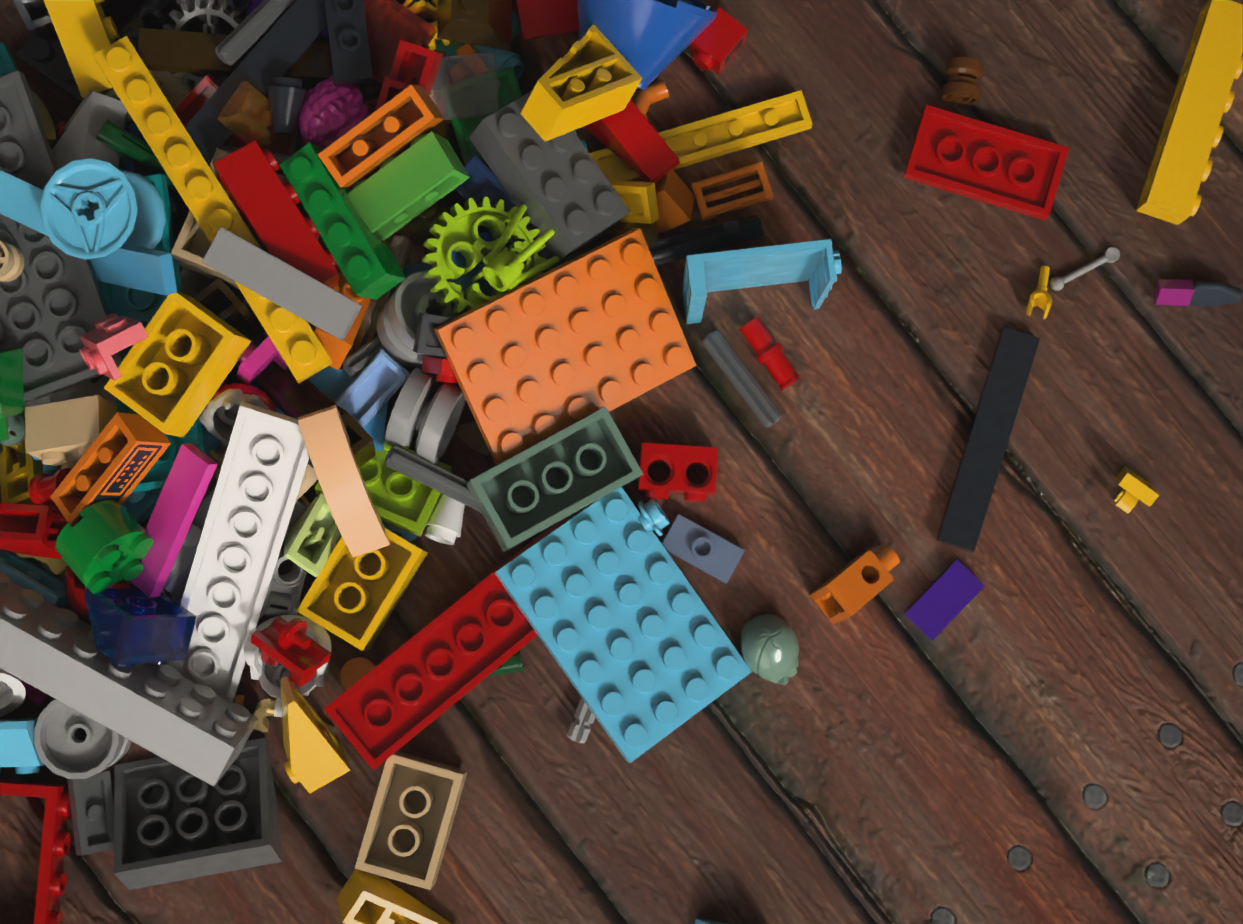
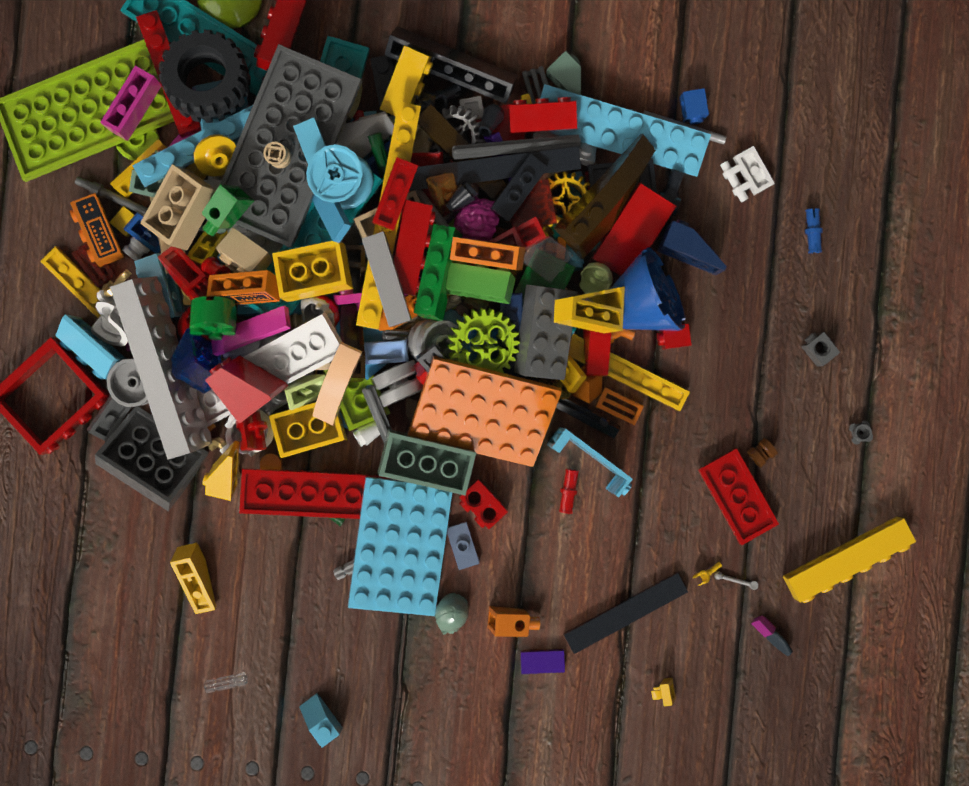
camera: 40 degrees right, 5 degrees up
(108, 338) = (293, 236): coral bracket -> none
(193, 168) = (395, 194): none -> red plate
(226, 597) = (243, 386): none -> slope
(411, 820) = (237, 545): tan brick -> none
(505, 269) = (487, 359): lime plant -> none
(544, 52) = (595, 278): none -> yellowish green hair
(652, 516) = (454, 513): medium azure plate -> none
(741, 379) = (546, 490): dark grey axle -> none

